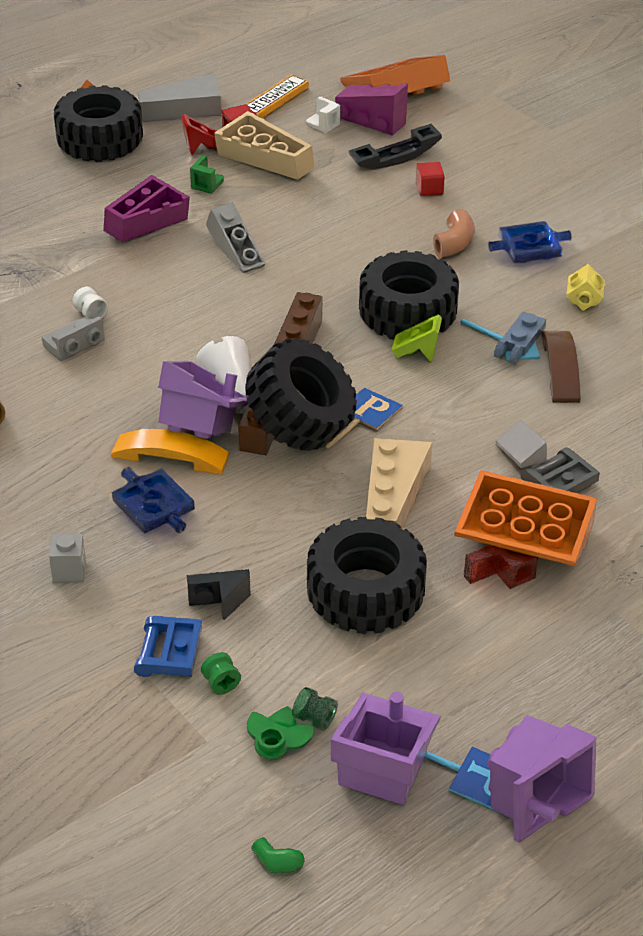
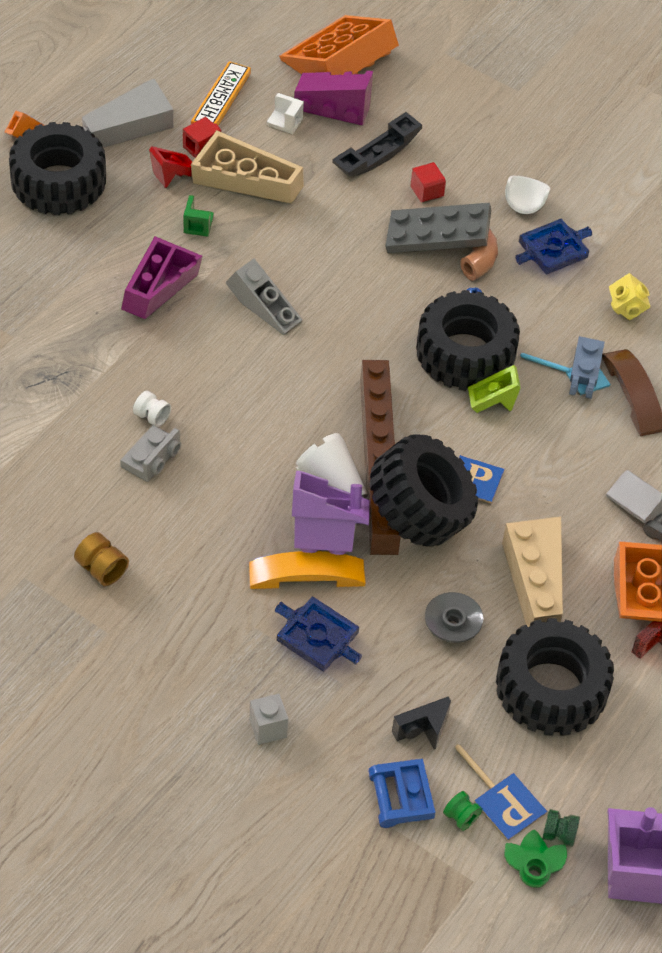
camera: 20 degrees left, 10 degrees up
(272, 681) = (508, 803): none -> blue piece
(291, 510) = (456, 608): none -> dark grey dish
(422, 210) = (438, 228): none -> dark grey plate
(518, 199) = (526, 194): none -> white helmet

